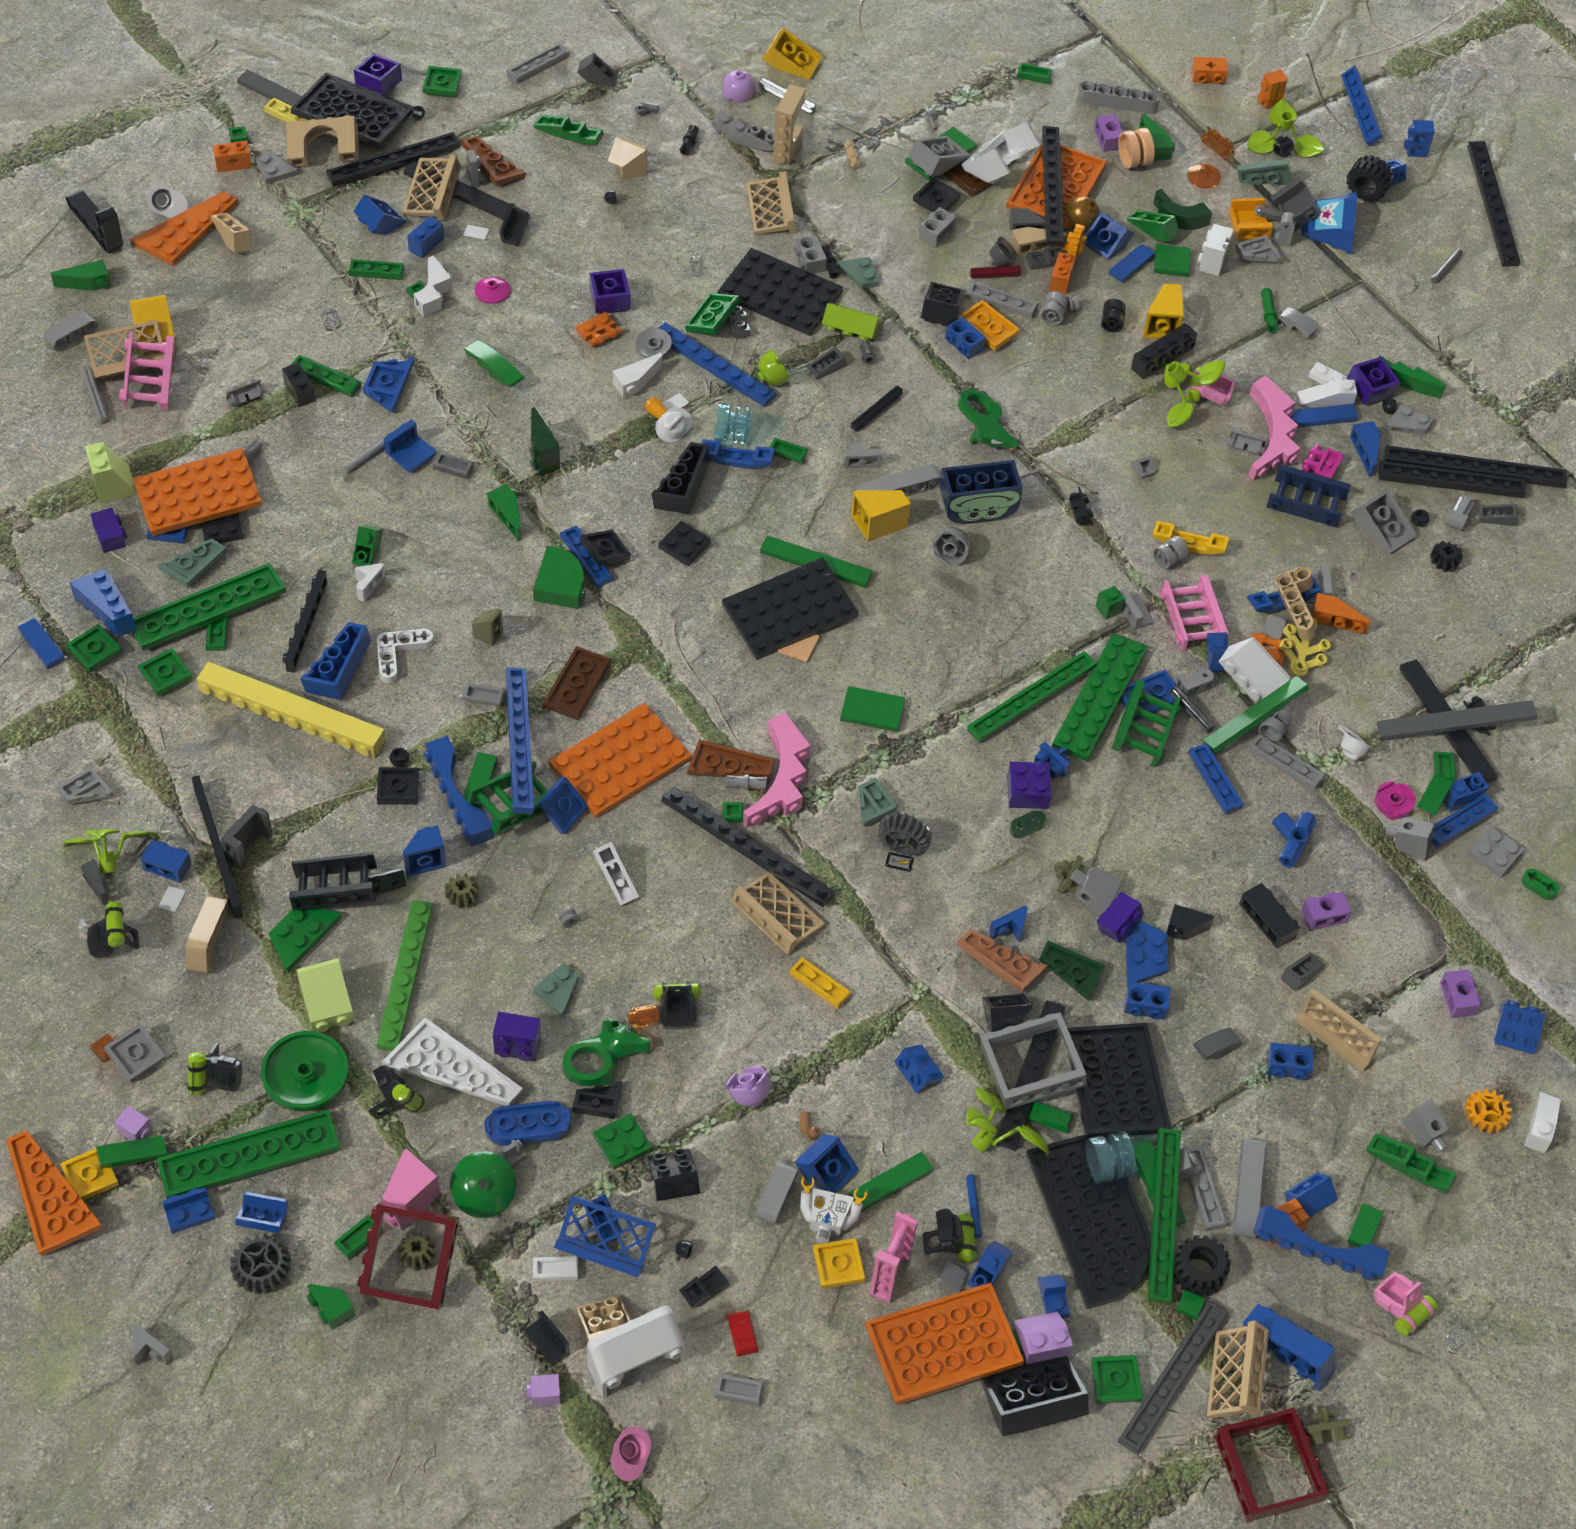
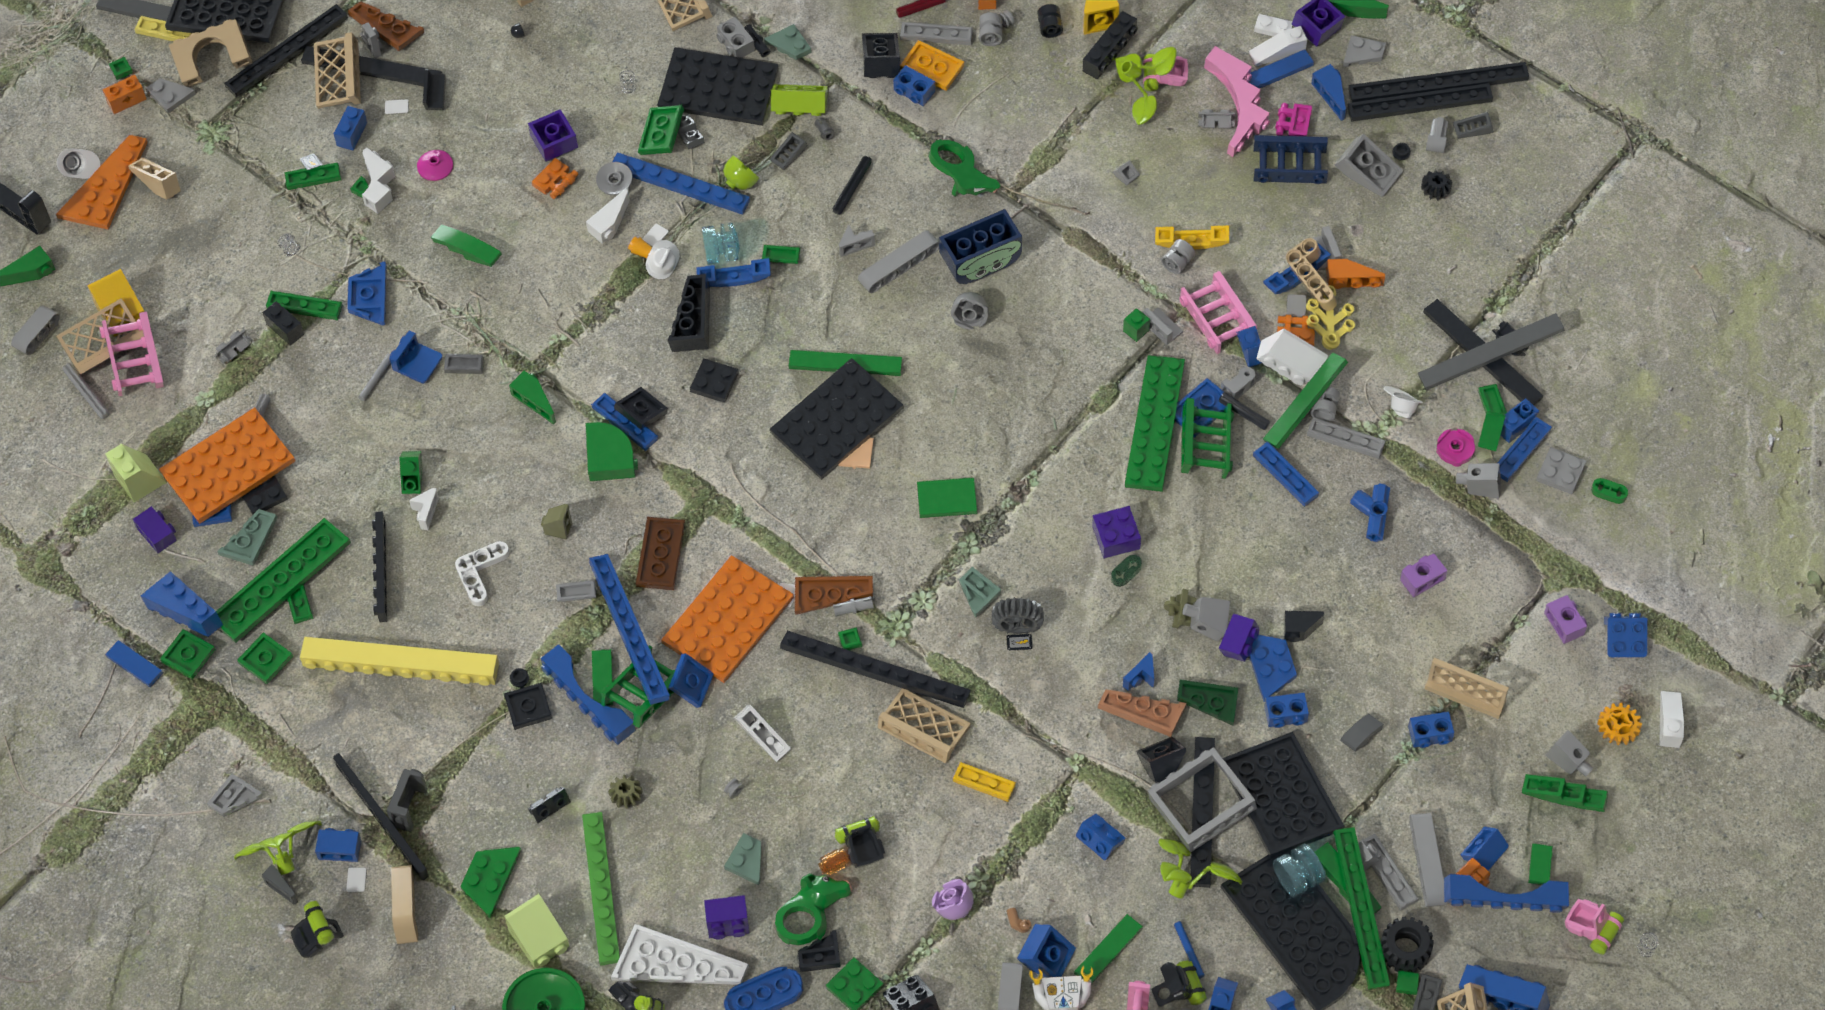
camera: 10 degrees left, 5 degrees up
(336, 895) = (511, 833): black fence -> none
(338, 664) = (428, 604): blue wedge -> none
(378, 215) = (294, 117): blue slope -> none
(379, 256) = (310, 161): none -> sticker
(424, 852) = (579, 764): blue slope -> none
(544, 446) = (546, 320): dark green slope -> none
(783, 793) = (885, 562): bright pink arch -> none
(880, 512) = (891, 295): yellow slope -> none
(1031, 696) = (1091, 442): green plate -> none
(1050, 1117) = (1232, 846): green tile -> none
(1055, 757) = (1132, 498): blue hips -> none
(1080, 501) = (1084, 238): black hinge -> none
(1269, 915) = (1373, 594): black brick -> none
(1296, 976) = (1413, 649): dark grey slope -> none
(1389, 405) = (1340, 41): black hinge -> none

